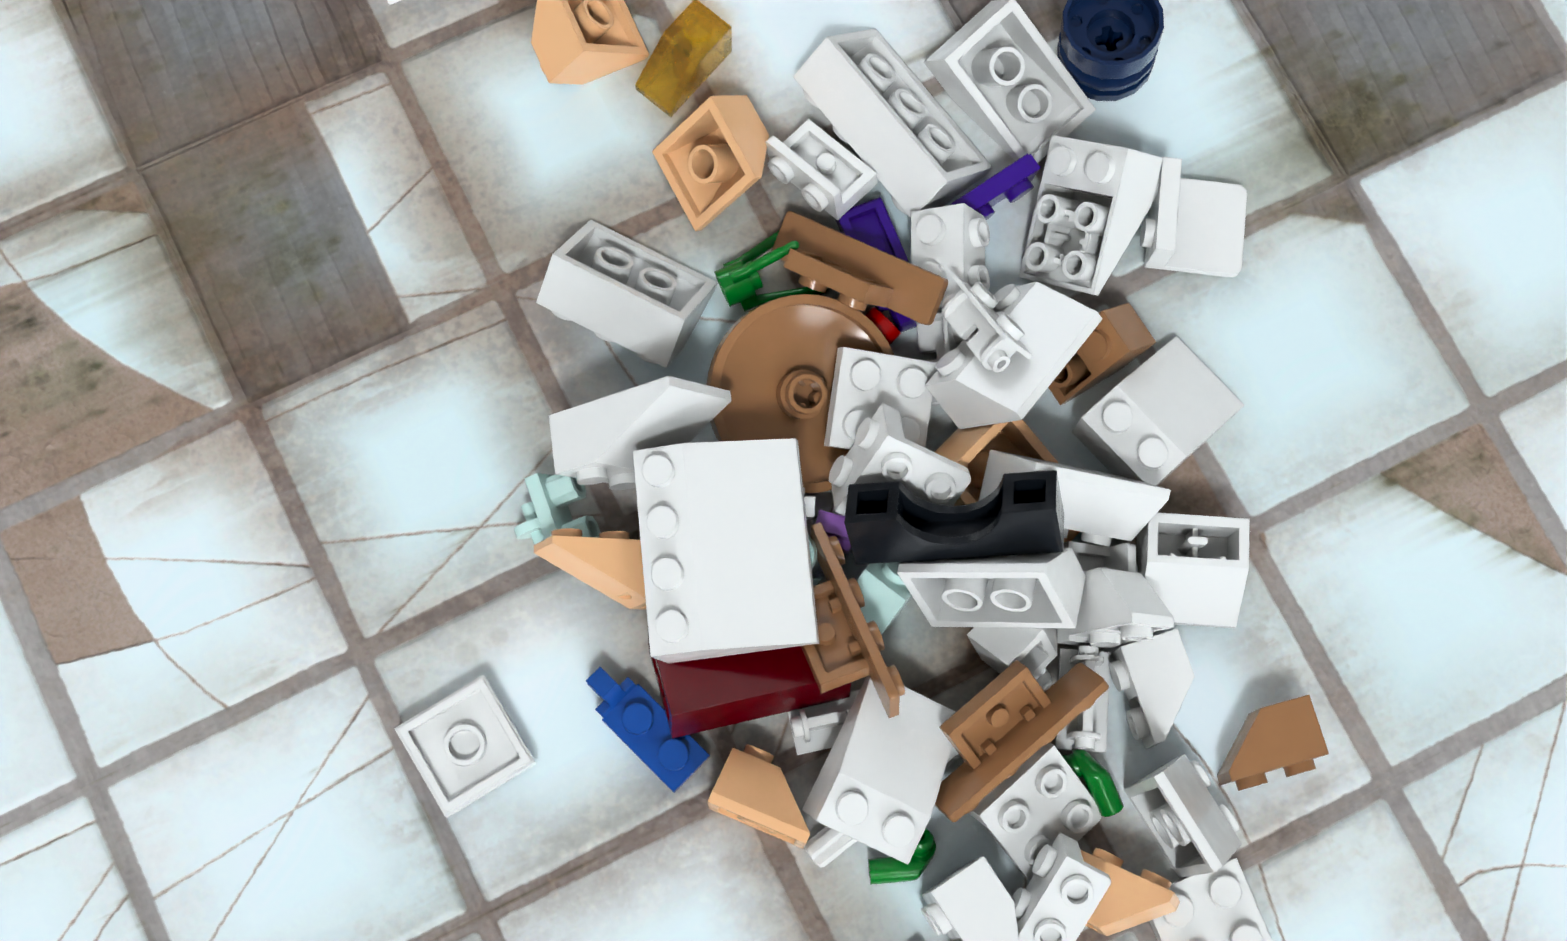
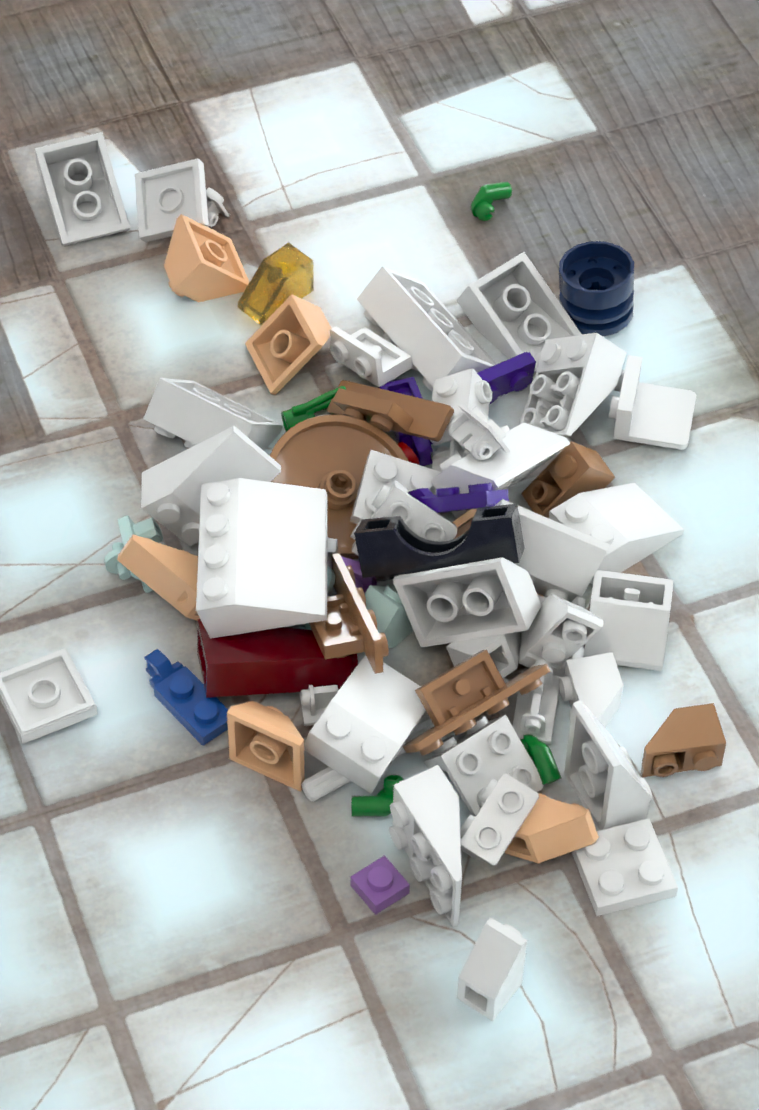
camera: 10 degrees right, 25 degrees down
(968, 437) = (451, 500): none -> dark purple hinge

